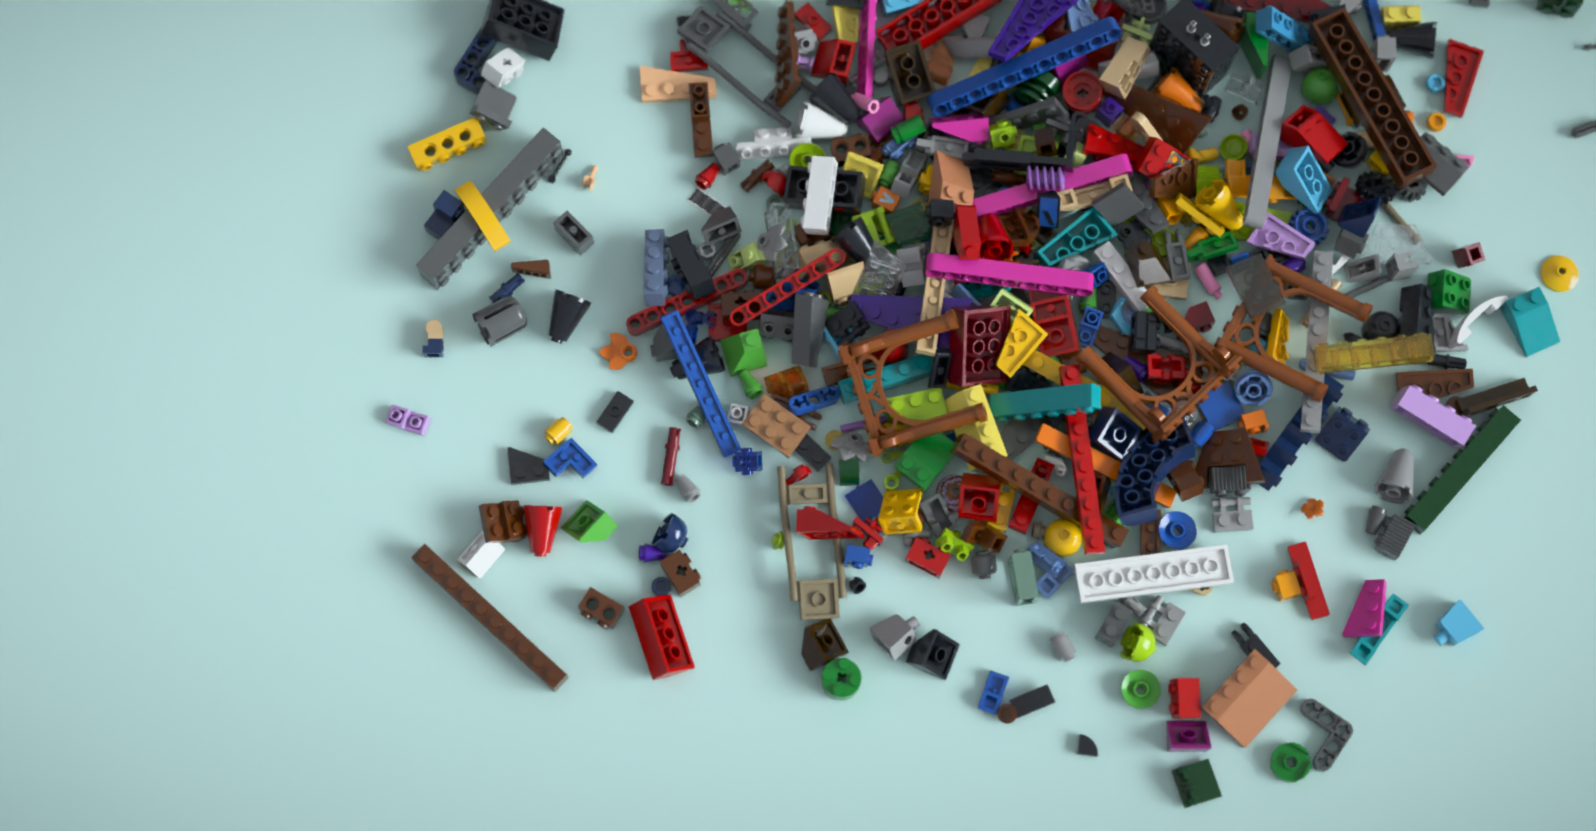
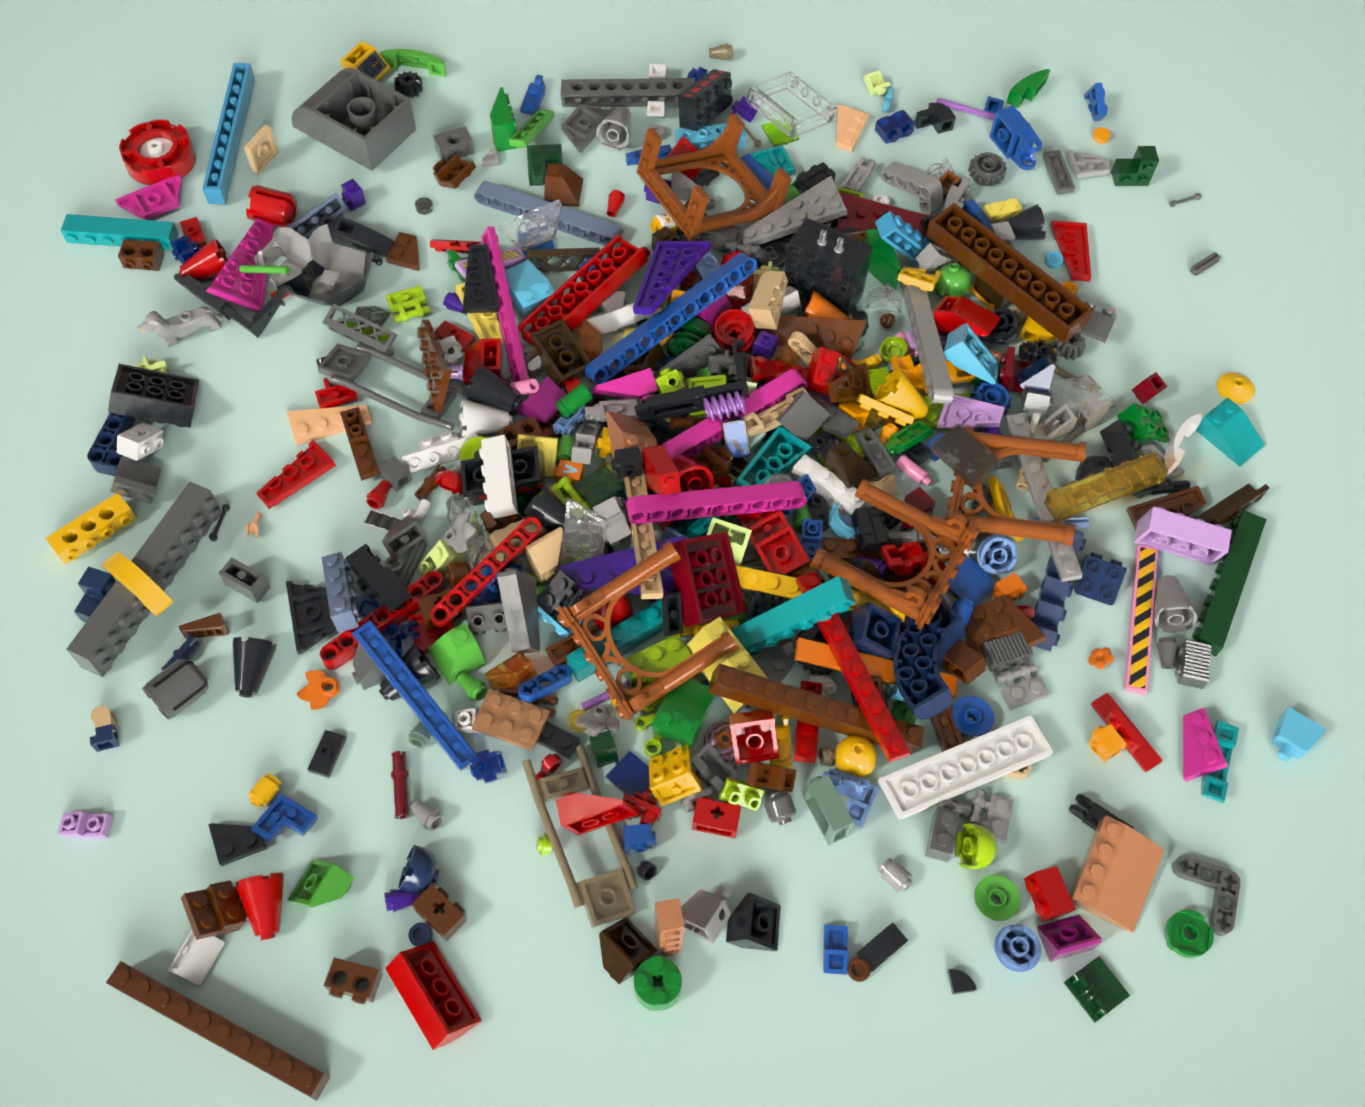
camera: 15 degrees left, 15 degrees down
(624, 279) = (309, 614): none -> black wing
(645, 132) = (304, 470): none -> red wing
(738, 204) = (418, 513): none -> white arm
(861, 639) = (669, 927): none -> nougat brick
(1019, 344) = (748, 566): yellow wing -> none
(1045, 142) = (713, 373): dark brown brick -> none
(1141, 733) = (1017, 948): none -> medium blue cone
(1284, 79) = (919, 278): none -> yellow wing
(1366, 481) = (1141, 620): none -> tile

